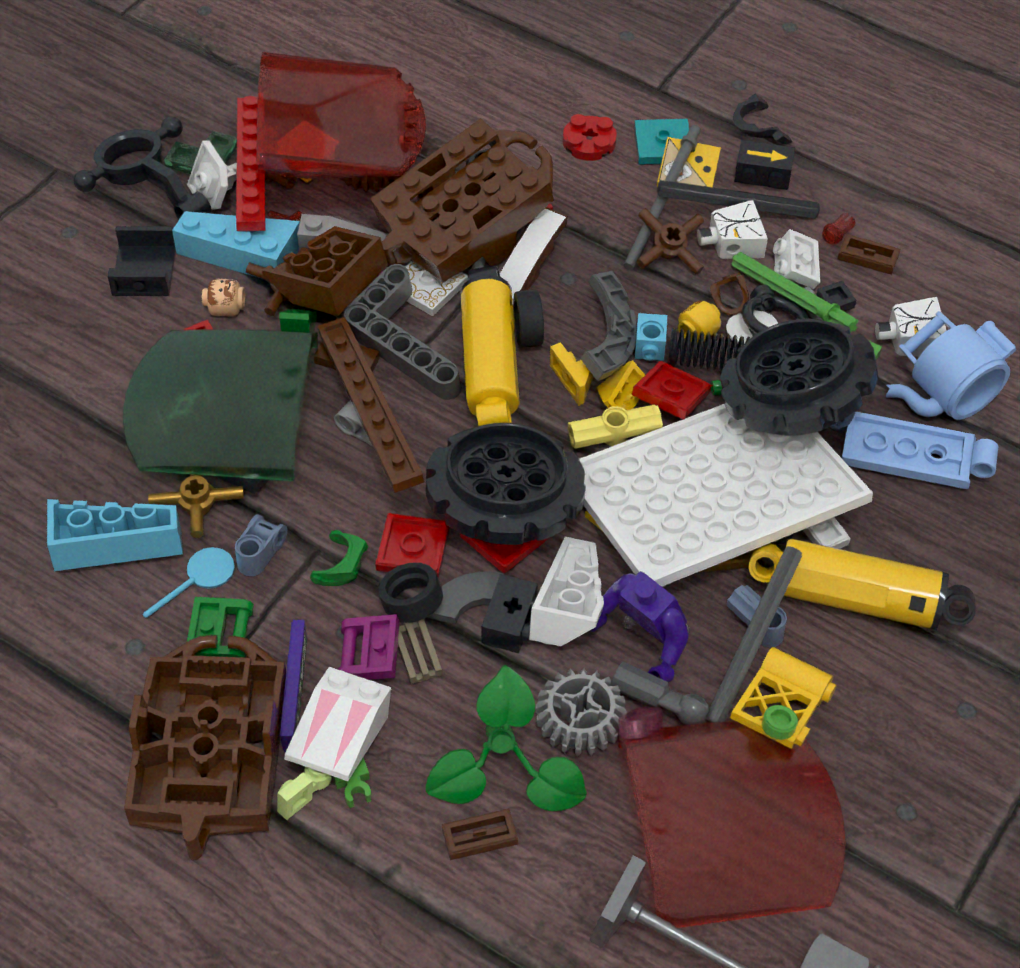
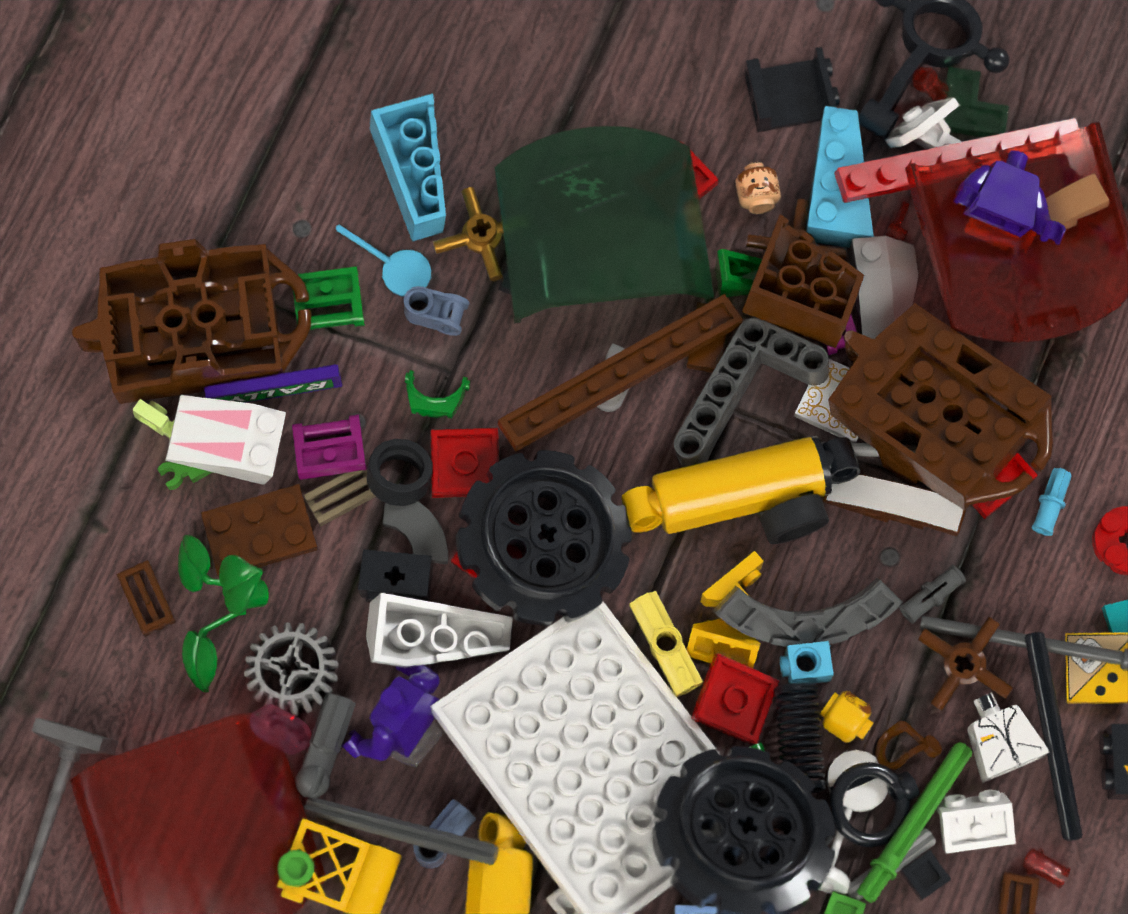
camera: 80 degrees right, 20 degrees up
(177, 164) = (927, 81): none -> clear red pin
(304, 126) = (1009, 199): none -> dark purple torso
(319, 94) = (1077, 201): none -> medium nougat slope
(433, 720) = (261, 528): none -> reddish brown plate
(560, 176) = (1052, 501): none -> medium azure axle
(608, 252) = (949, 580): none -> dark grey pin

